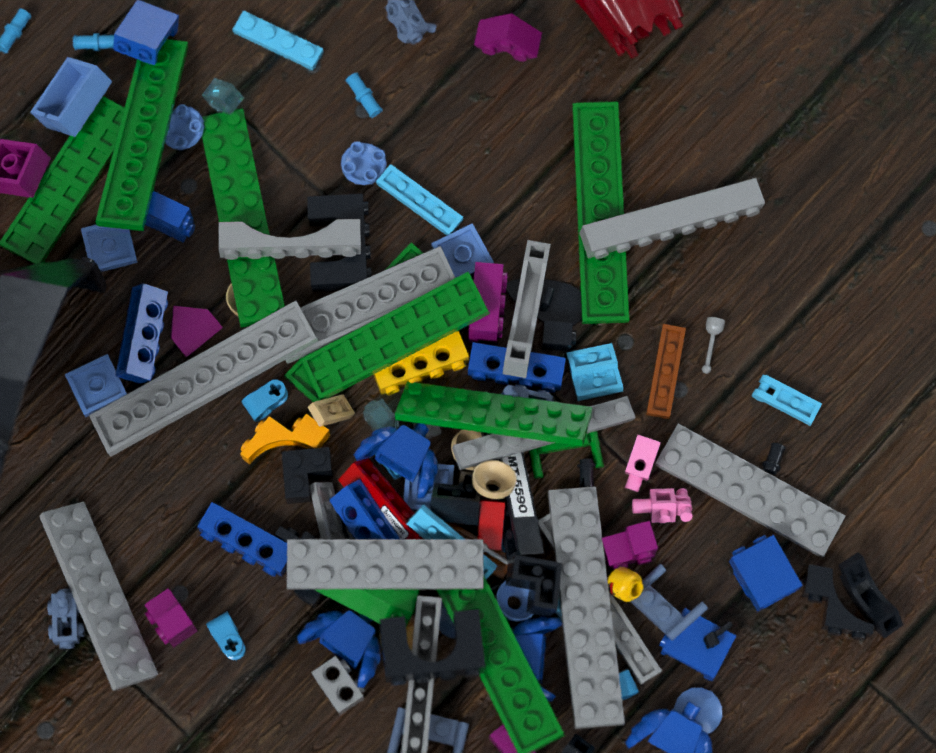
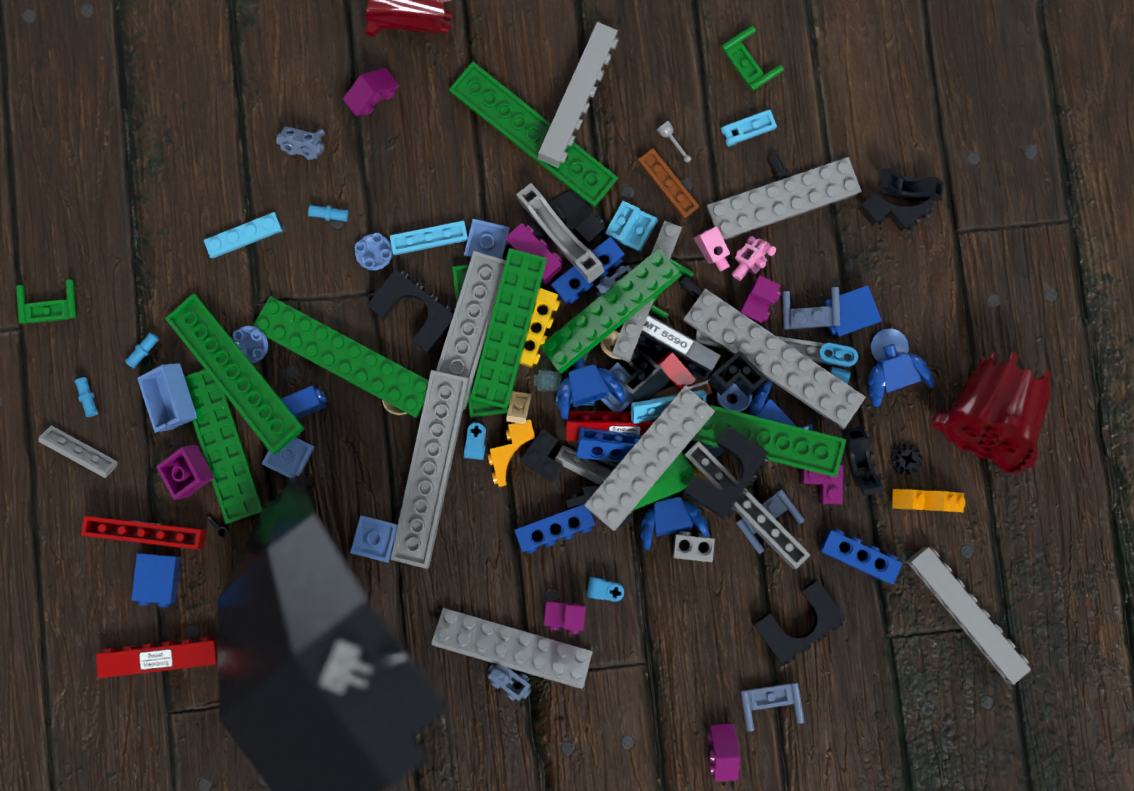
camera: 50 degrees left, 10 degrees up
(133, 342) = (367, 493): blue brick -> none
(145, 31) = (163, 314): panel -> none
(192, 328) = (388, 448): magenta slope -> none
(222, 96) = (251, 301): clear light blue brick -> none
(338, 238) = (363, 370): light grey arch -> none
(494, 473) = (652, 340): tan piece -> none
(625, 584) = (780, 323): yellow head -> none
(644, 664) = (837, 354): none -> dark azure plate
(711, 639) = (858, 301): black hand -> none
(764, 572) = (844, 235): blue brick -> none
(844, 345) = (745, 64): none -> green plate

